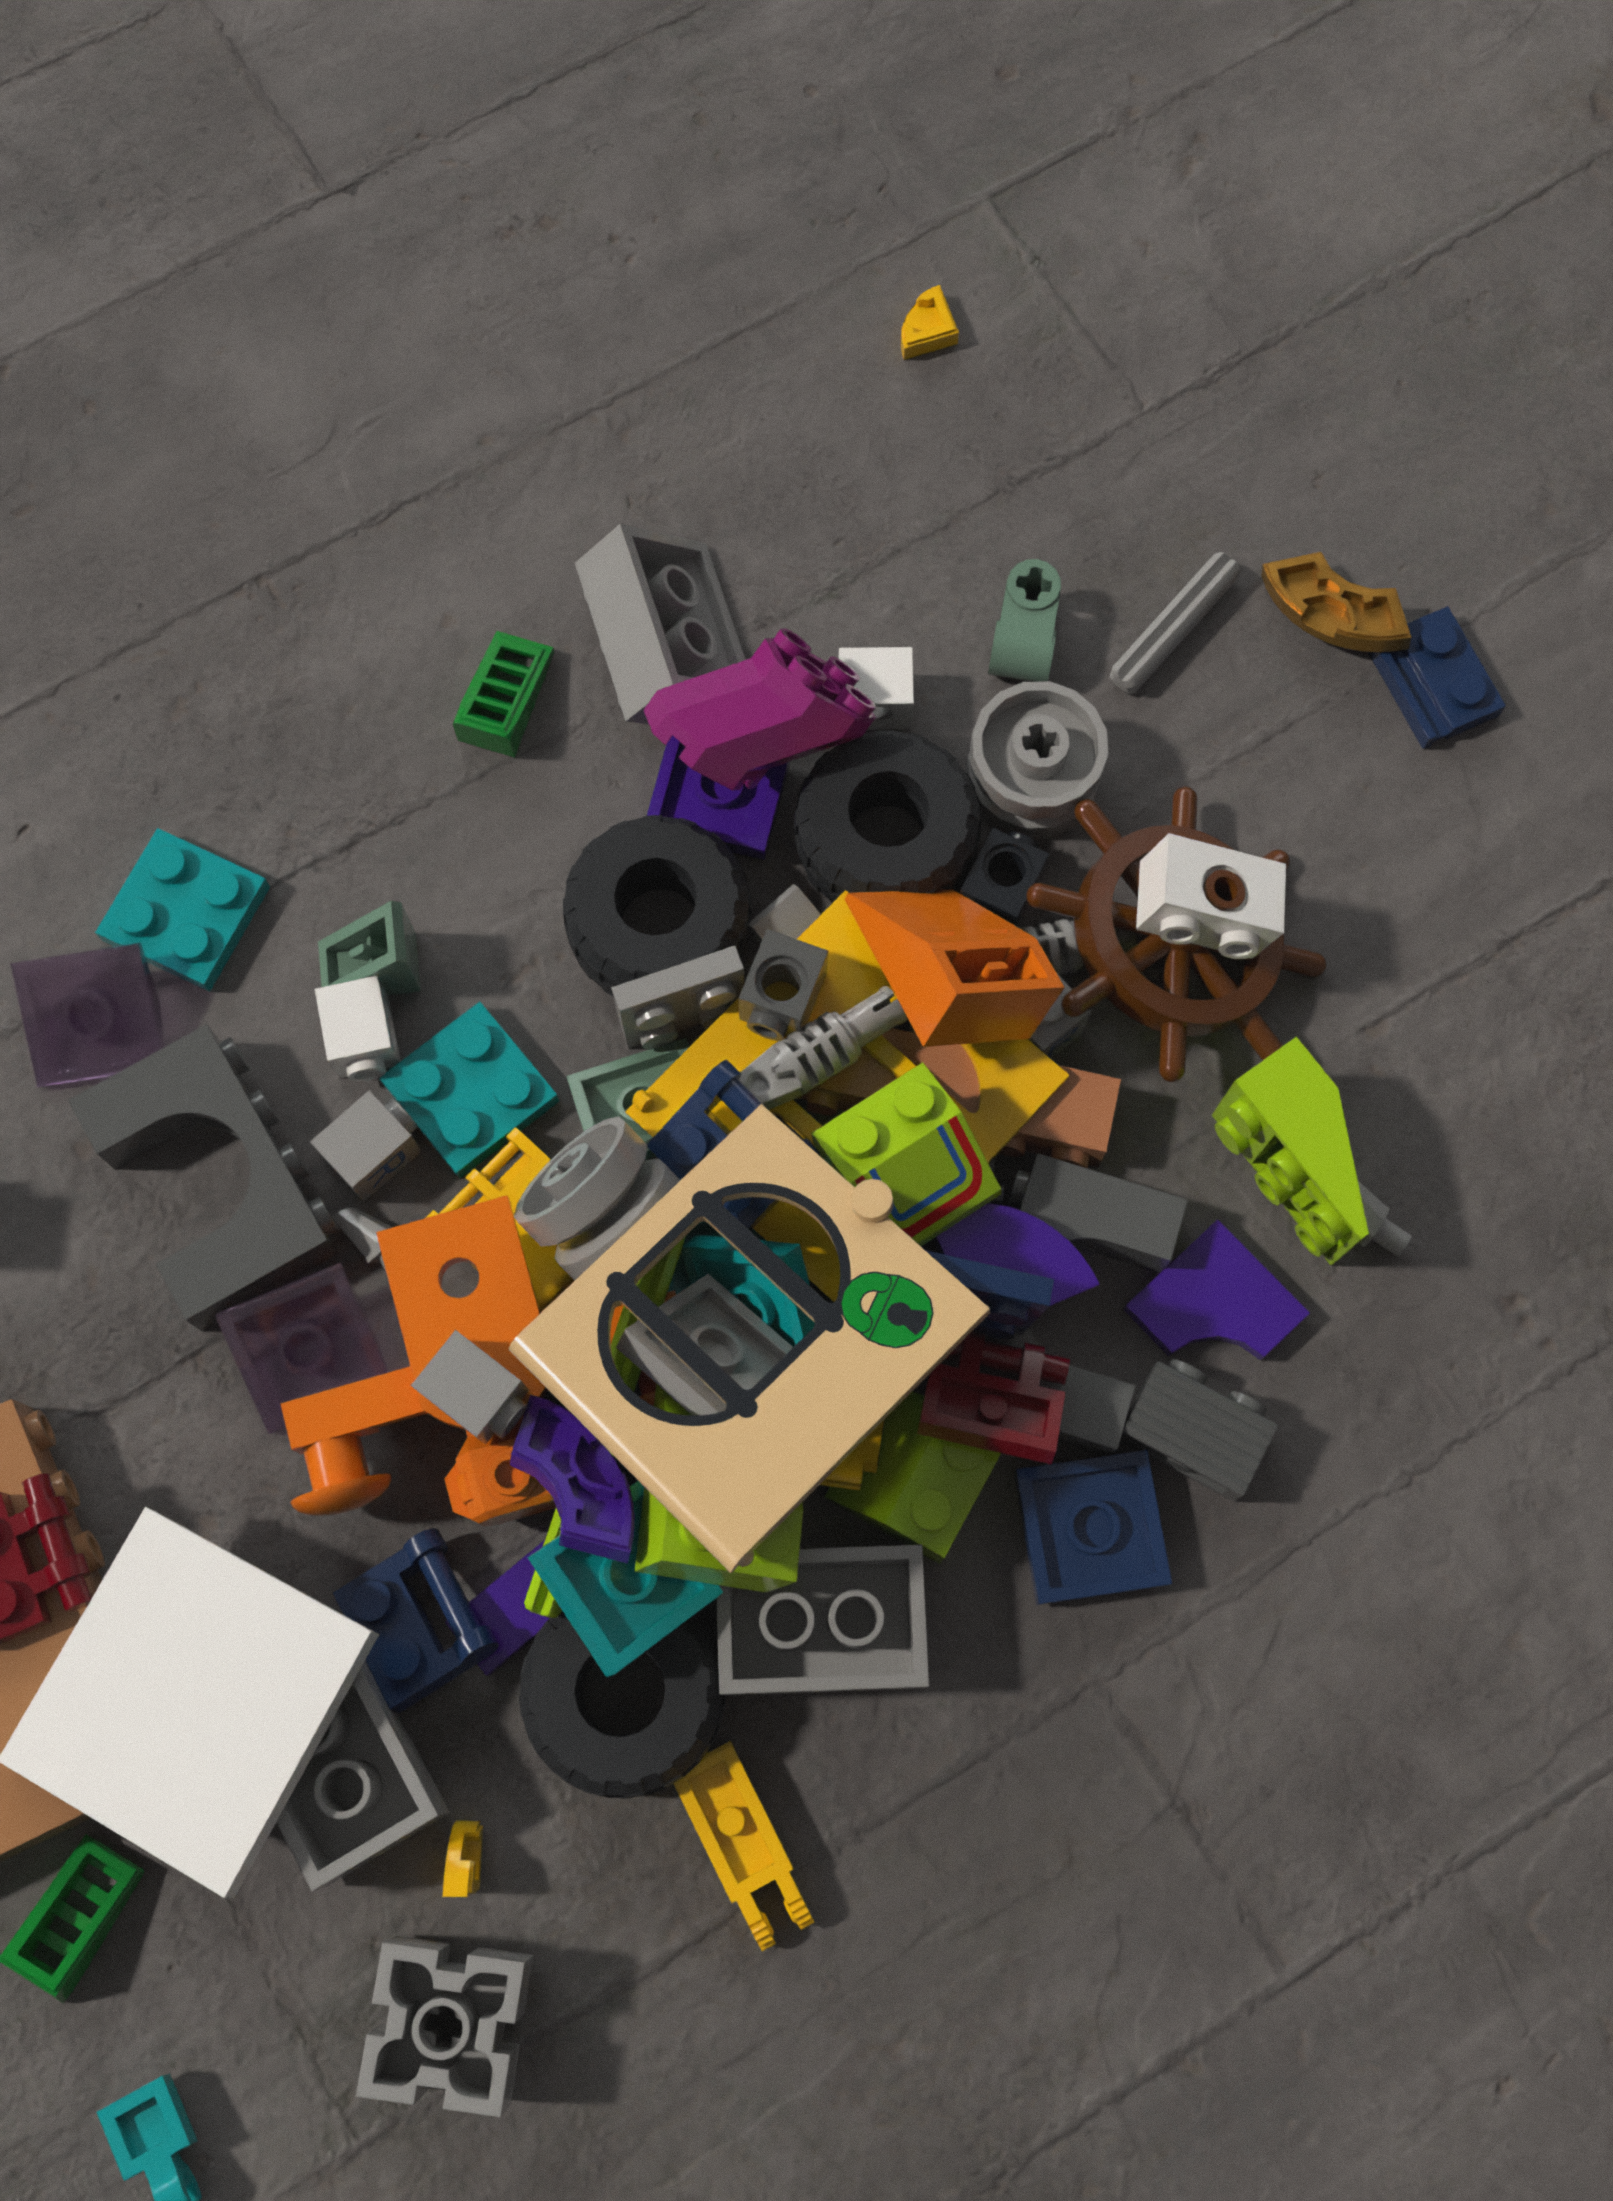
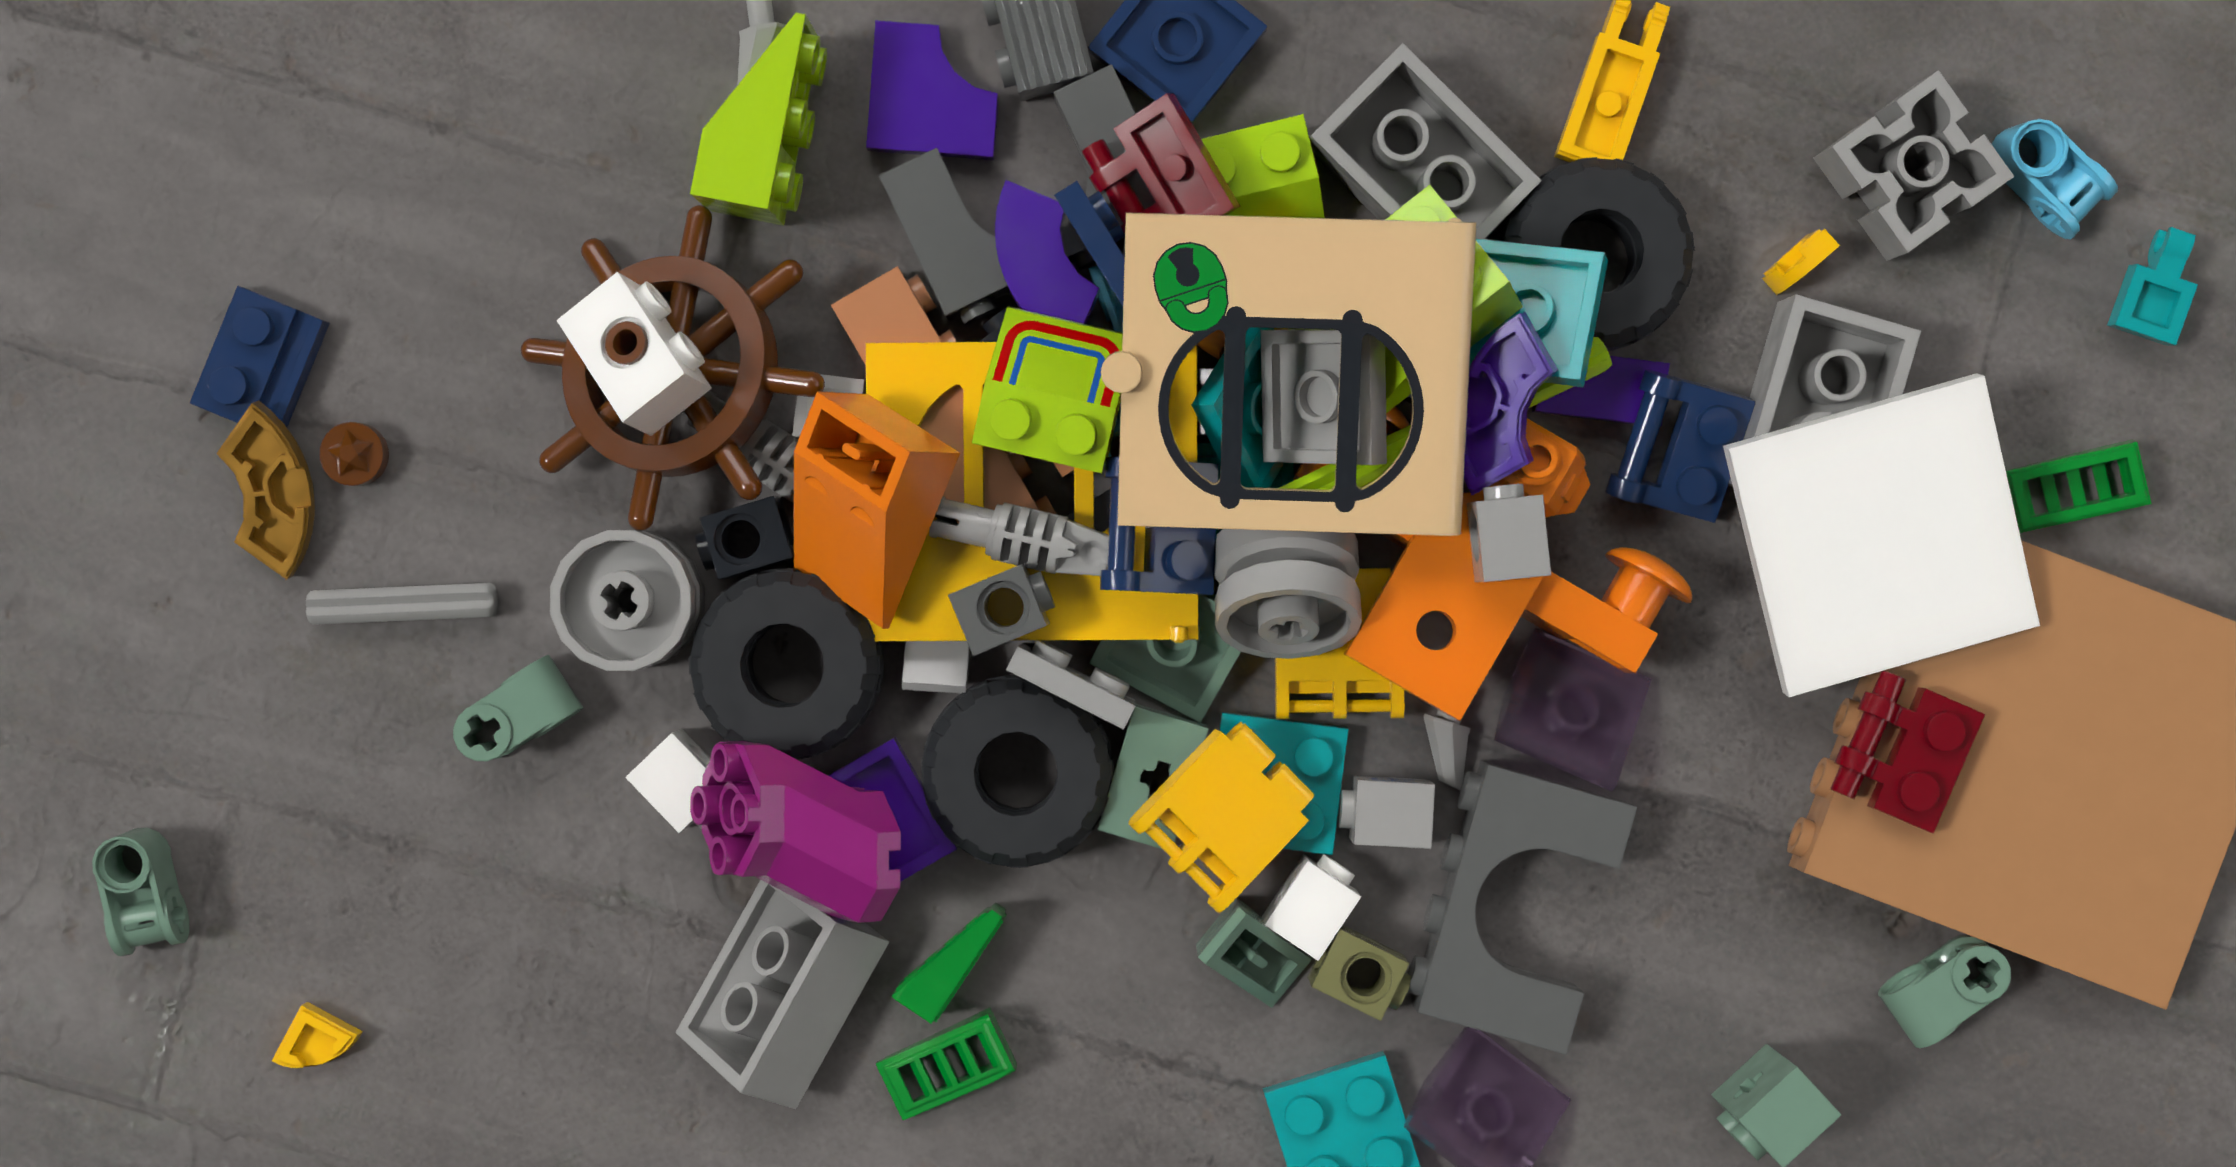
camera: 130 degrees left, 15 degrees up
(255, 1002) = (1347, 946): none -> olive brick
(315, 2144) = (2063, 180): none -> medium azure piece
(482, 1018) = (1226, 812): none -> yellow plate
(551, 969) = (1148, 739): none -> sand green brick
(568, 731) = (938, 978): none -> green slope
(1132, 300) = (142, 897): none -> sand green piece
(1311, 682) = (354, 454): none -> reddish brown tile

